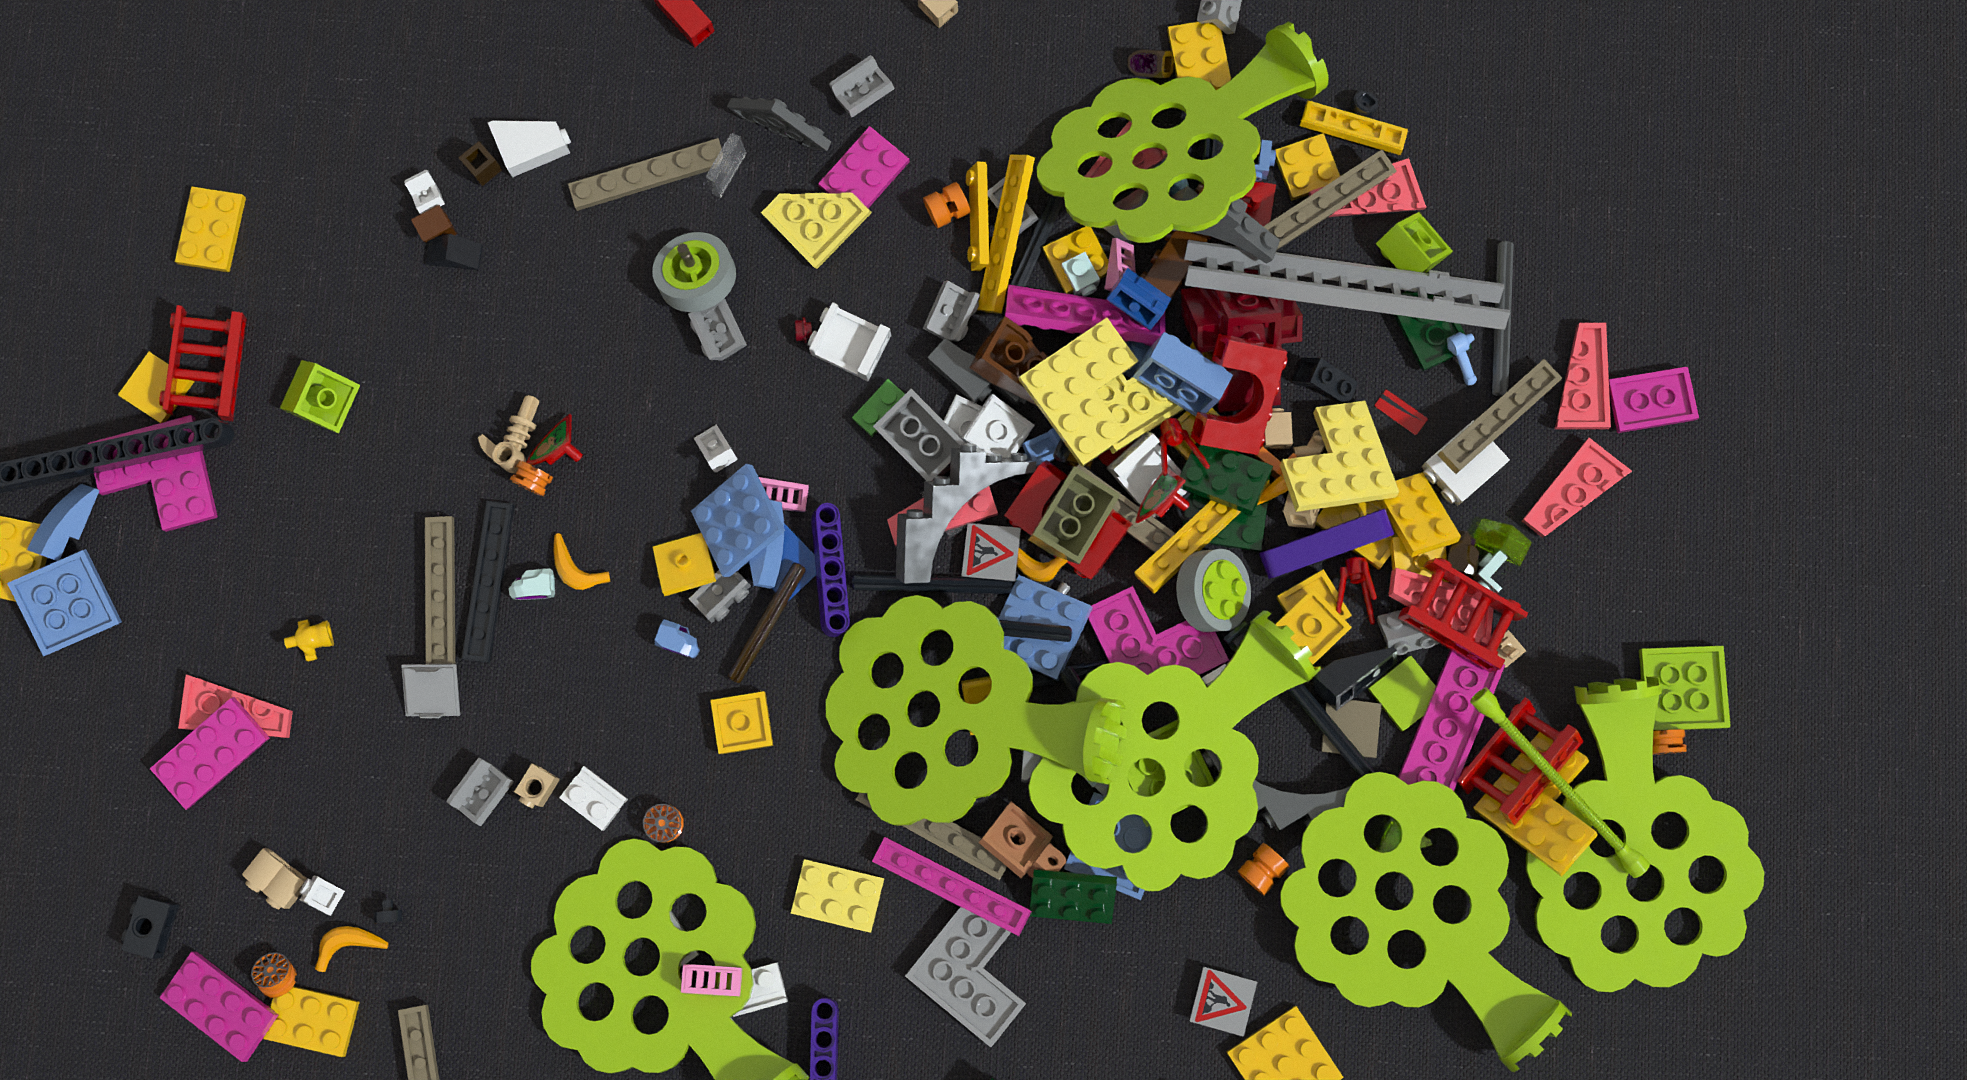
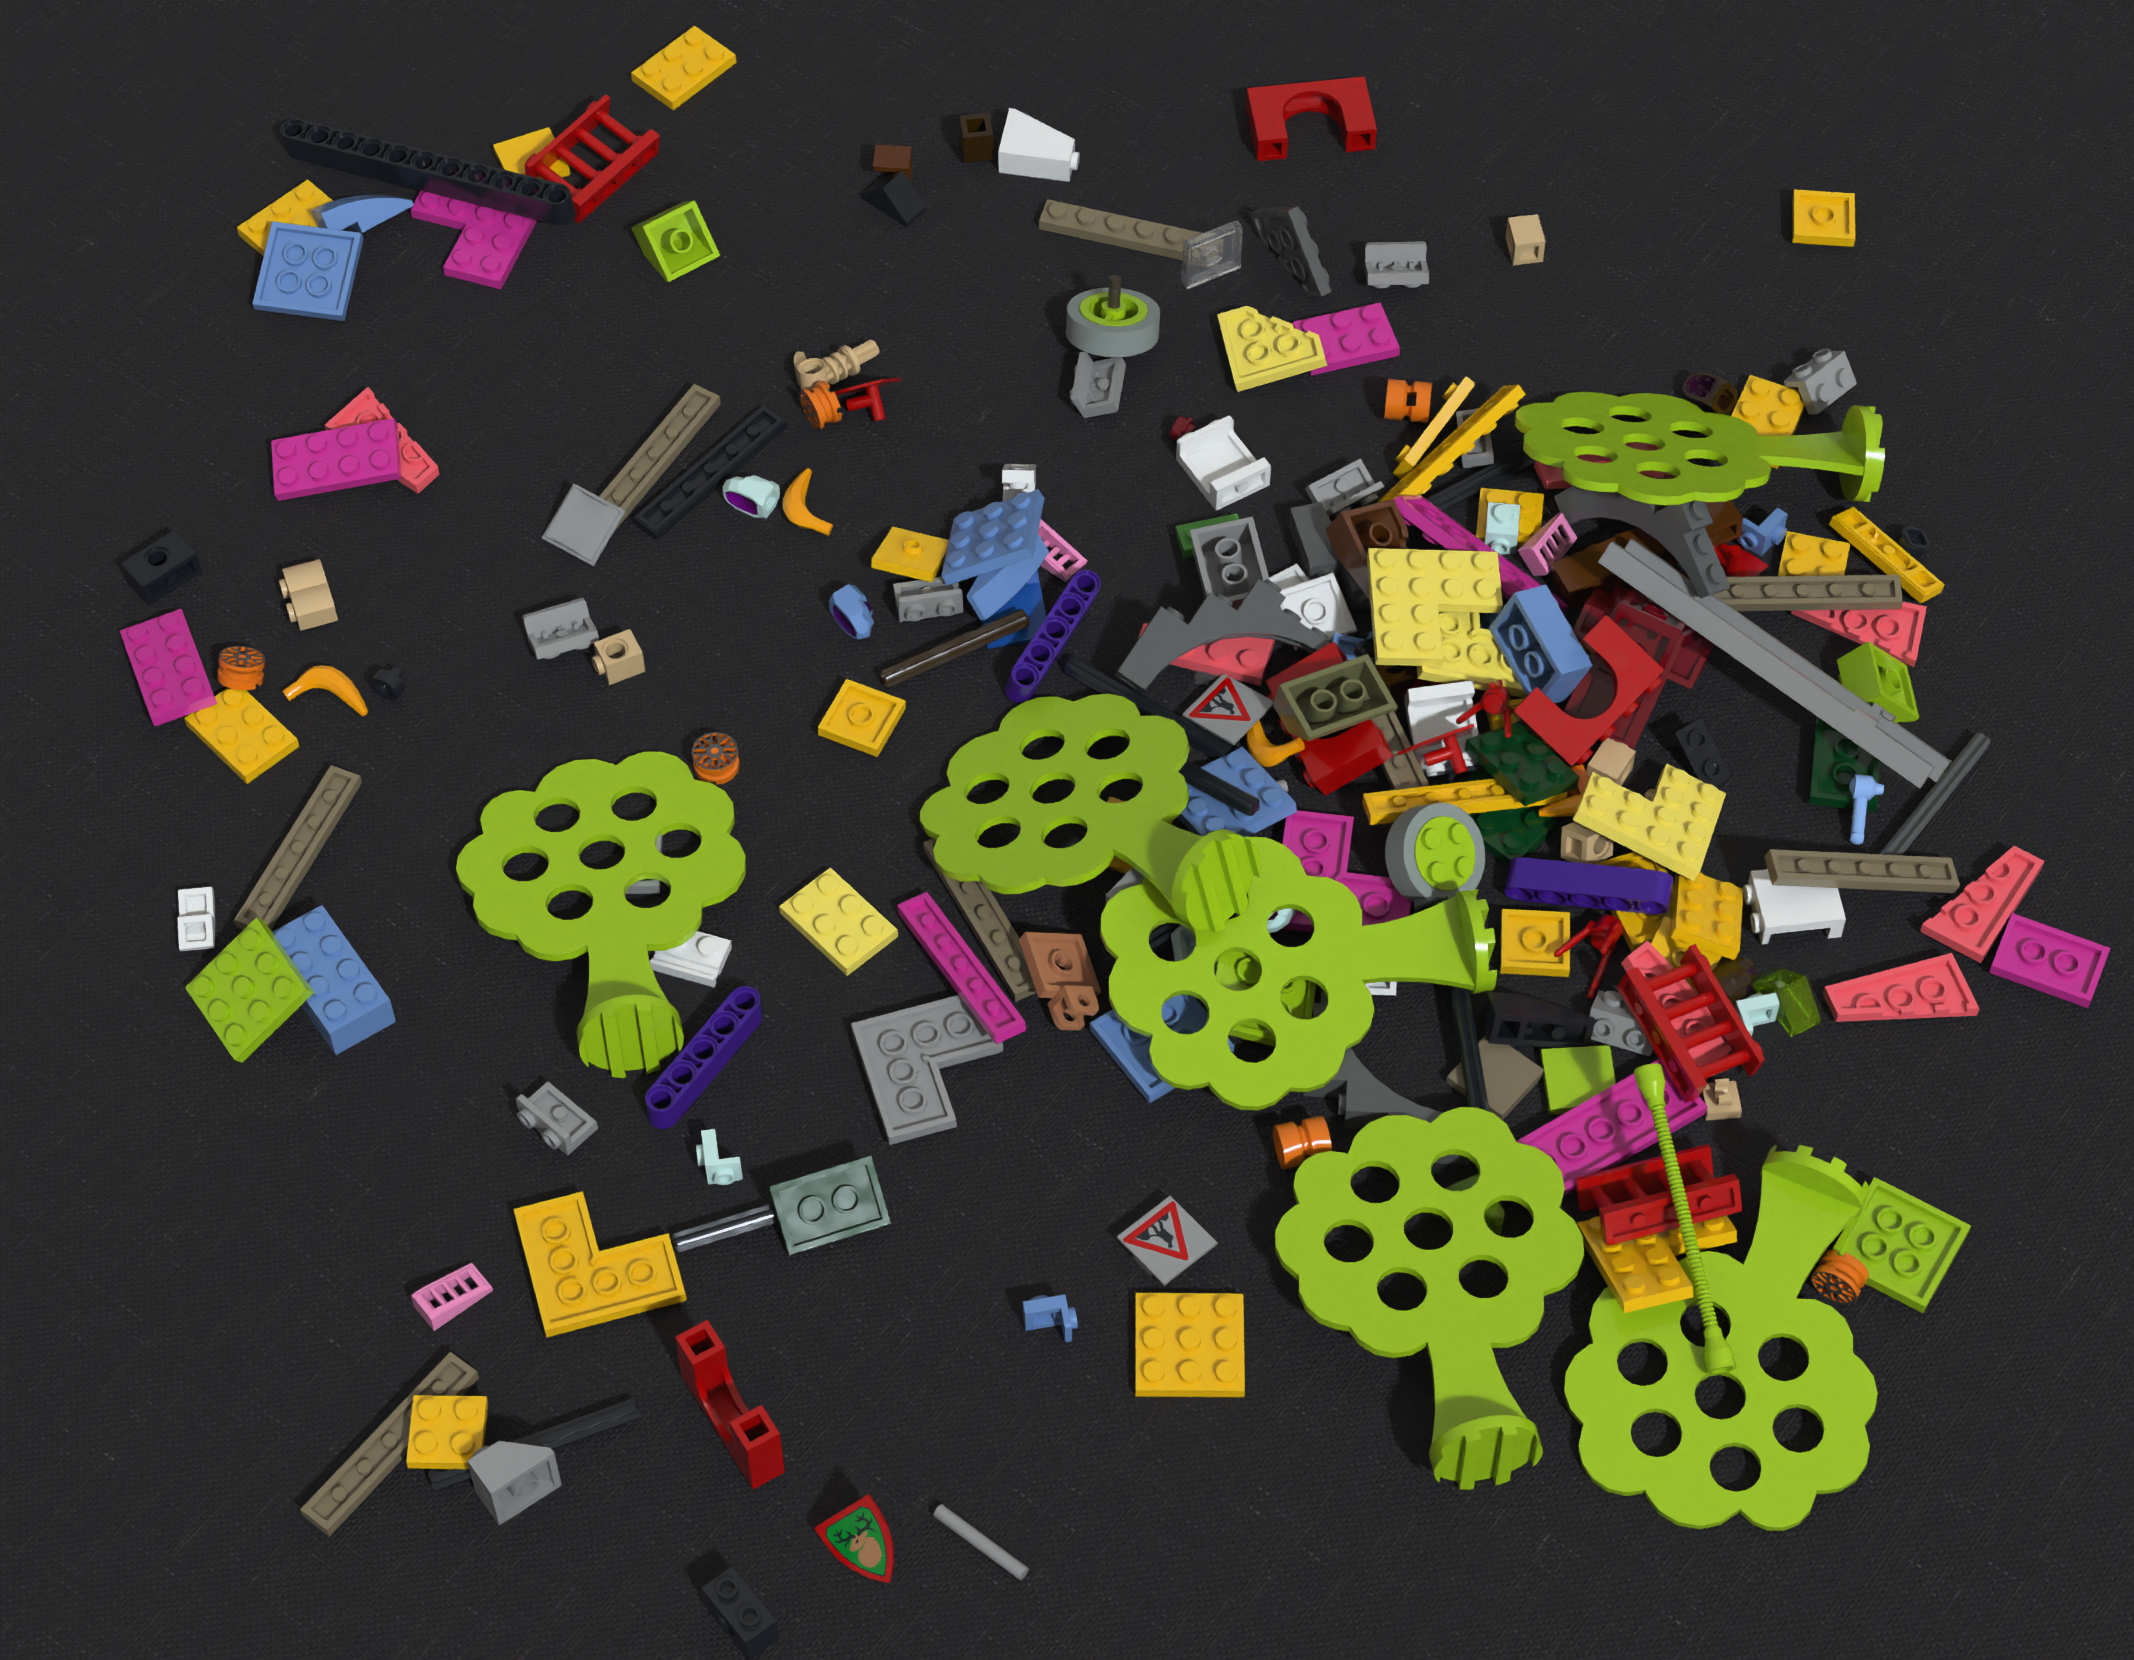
camera: 30 degrees right, 25 degrees down
(310, 637) = (507, 421): yellow piece -> none
(320, 894) = (340, 628): white bracket -> none
(424, 191) = (906, 132): white bracket -> none
(593, 798) = (664, 703): white plate -> none
(687, 976) = (640, 884): bright pink slope -> none
(1073, 896) = (1080, 1048): dark green plate -> none
(1138, 299) = (1543, 559): blue brick -> none
(1315, 624) = (1522, 949): yellow plate -> none
(1401, 412) = (1758, 828): red sticker -> none

